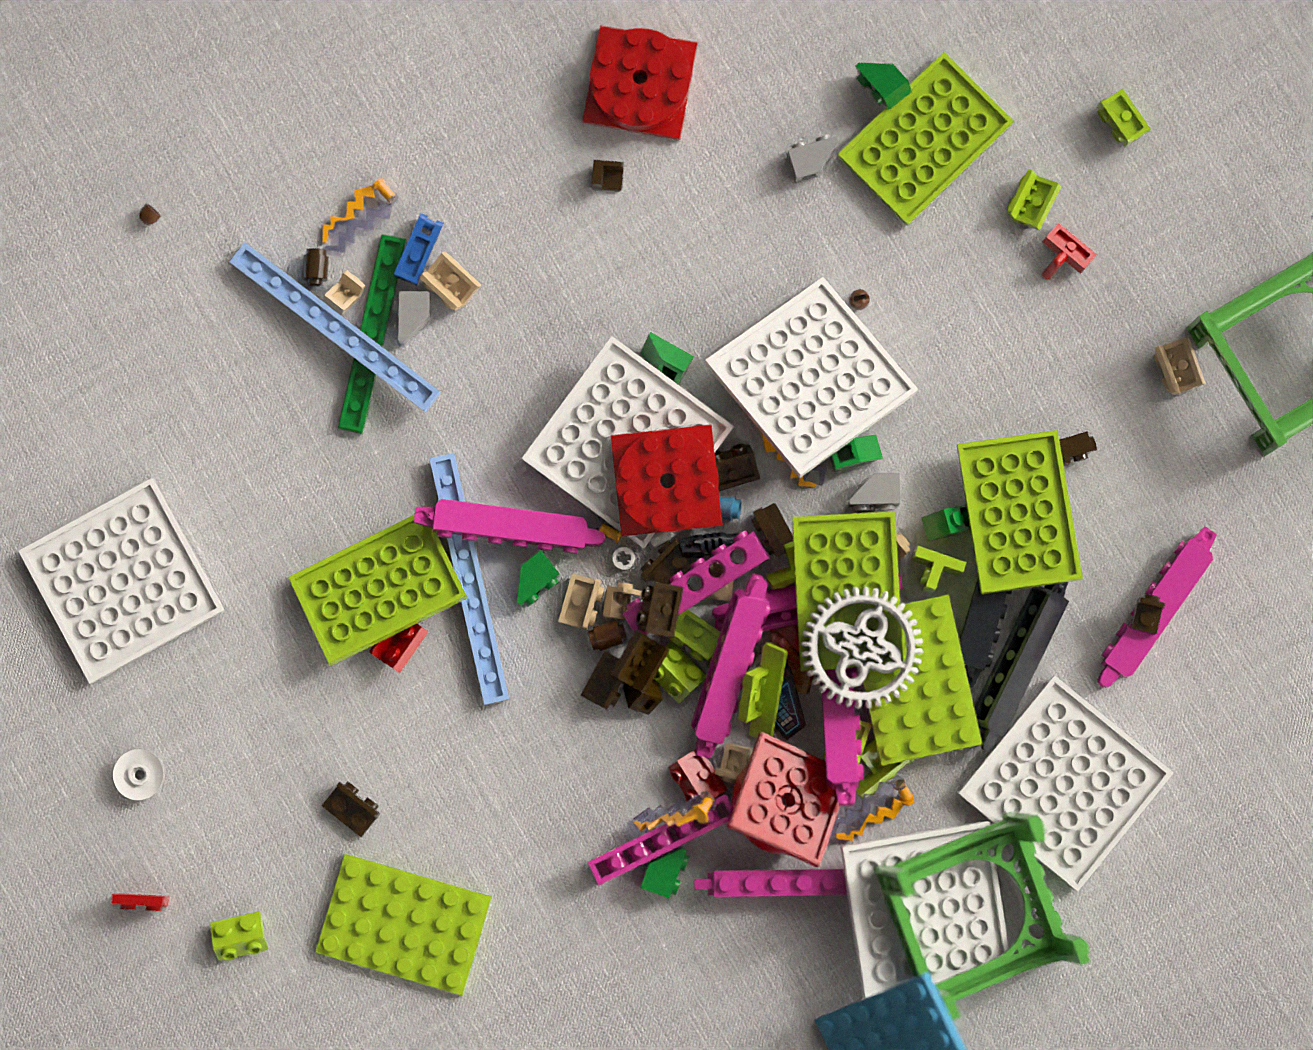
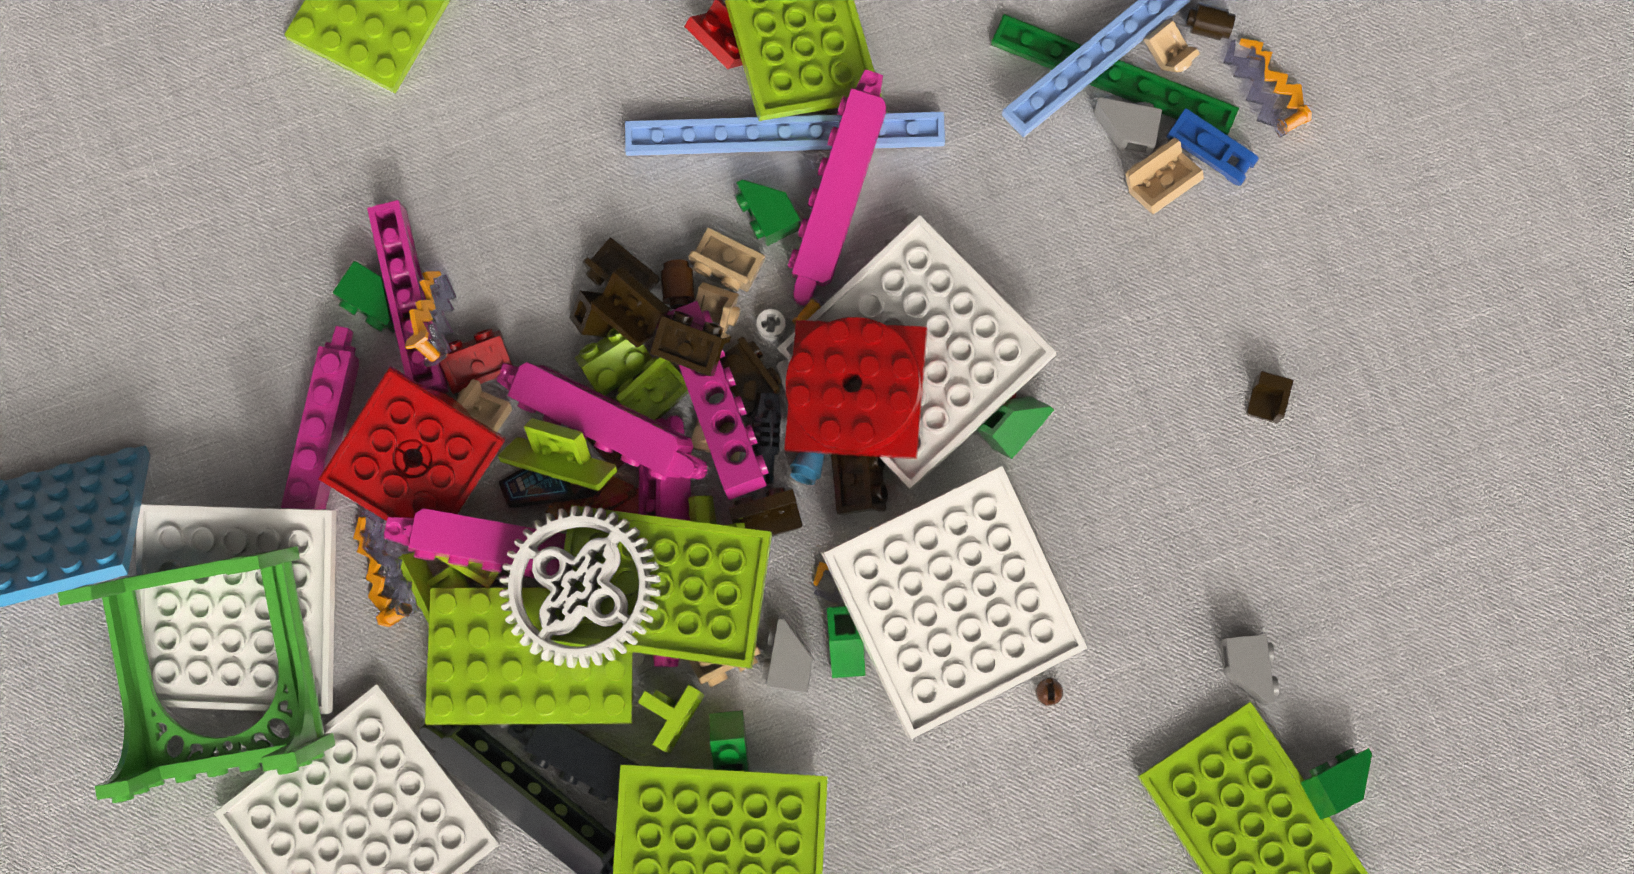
camera: 105 degrees right, 5 degrees down
(644, 108) = (1359, 484): red piece -> none

